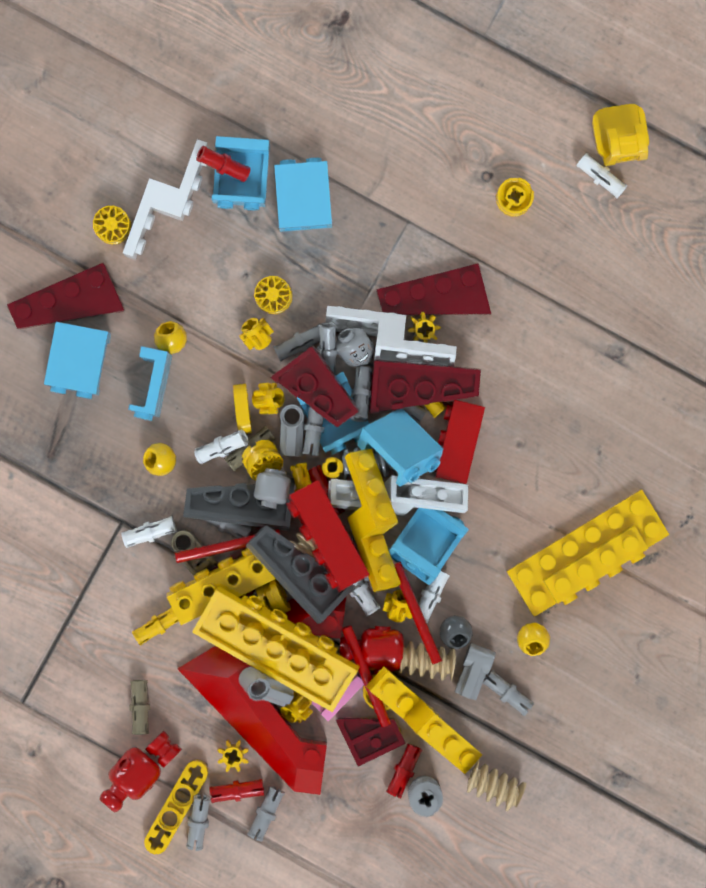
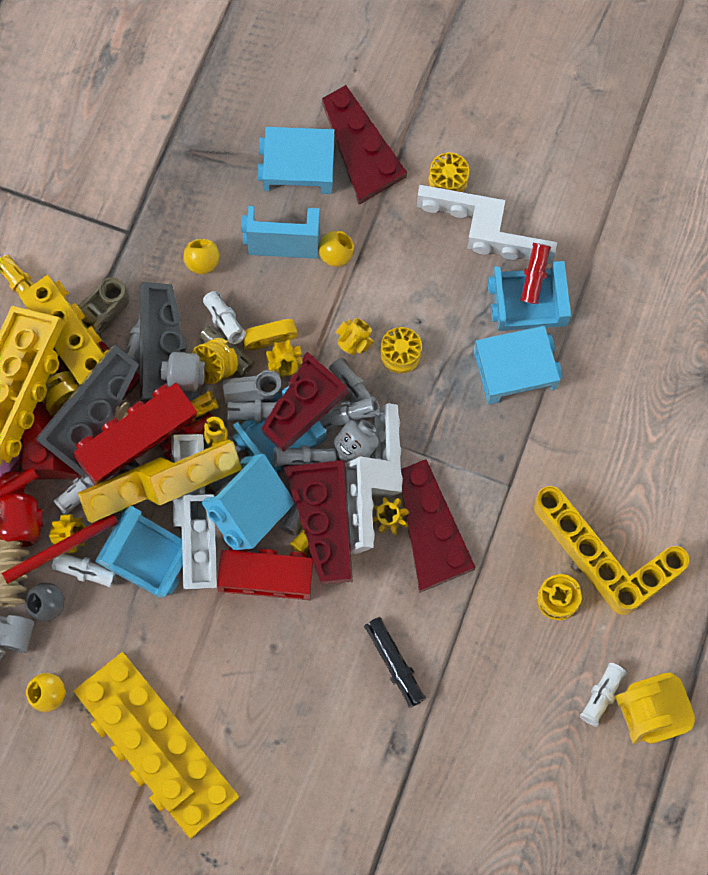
camera: 80 degrees right, 15 degrees down
(149, 532) = (121, 259): white pin -> none
(213, 549) = (109, 323): red bar -> none
(487, 154) = (603, 557): none -> yellow beam
(544, 346) = (399, 670): none -> black pin

